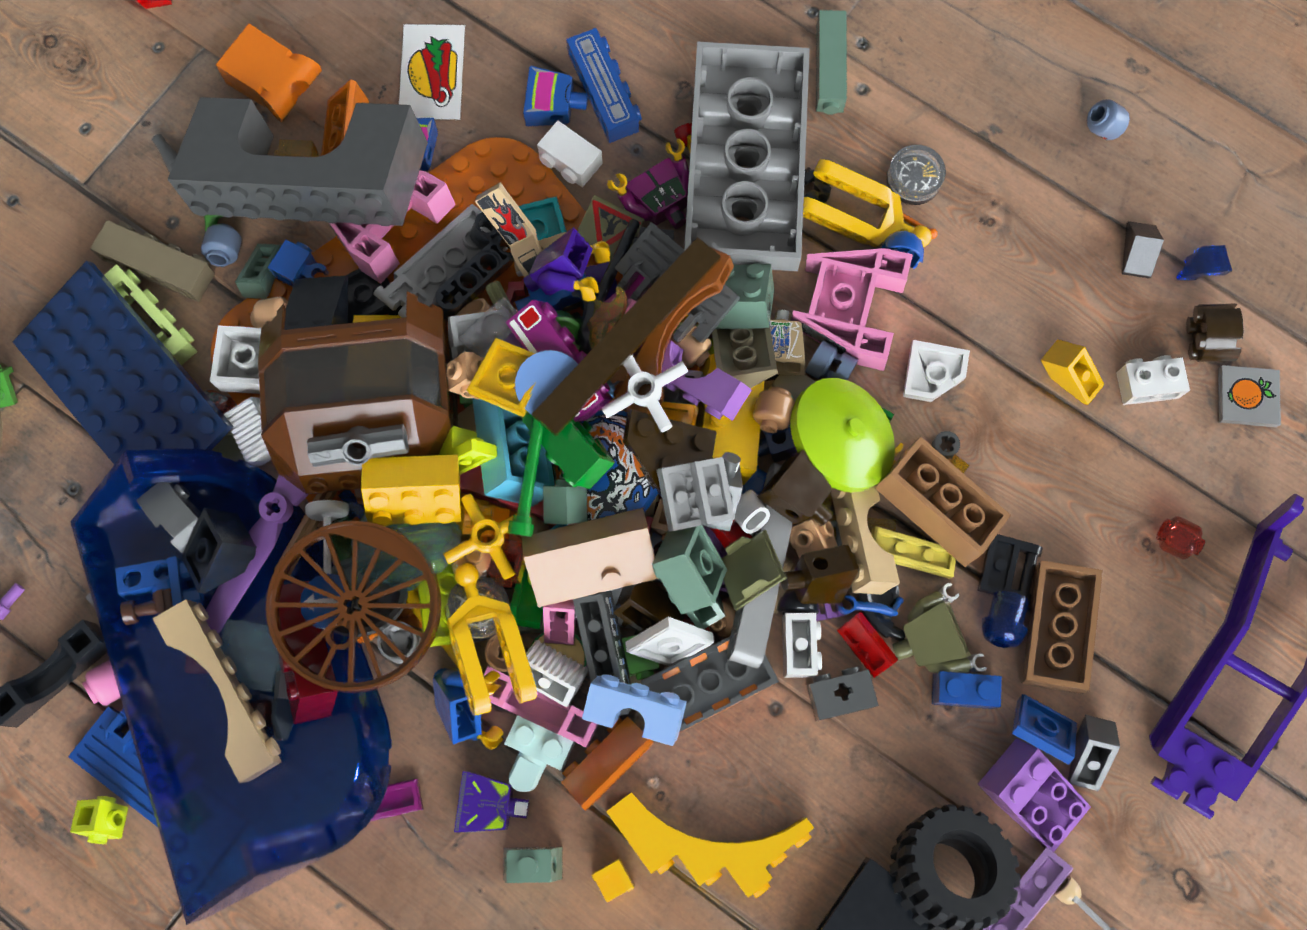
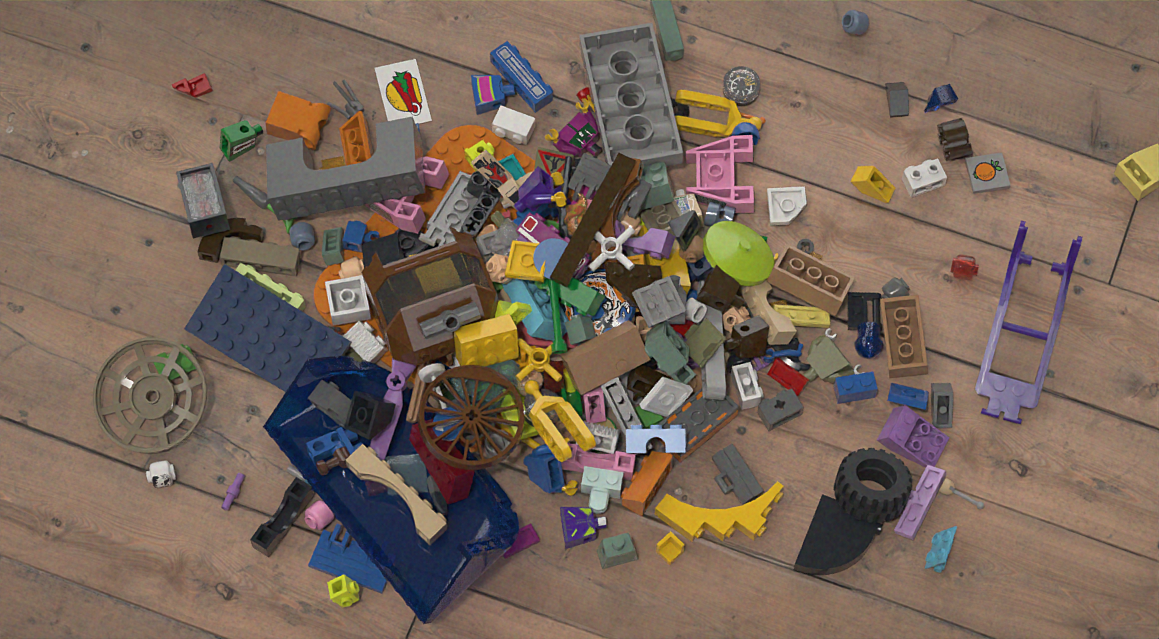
camera: 15 degrees left, 10 degrees down
(91, 159) = (202, 200): none -> brick
(116, 208) = (211, 245): none -> dark brown arch
(177, 80) = (238, 139): none -> green torso
(350, 69) = (352, 106): none -> dark grey plant
(518, 180) = (474, 151): none -> neon yellow brick
(754, 801) = (738, 474): none -> dark grey piece
(770, 380) = (685, 228): none -> black slope
(1066, 548) = (895, 288): none -> dark grey head

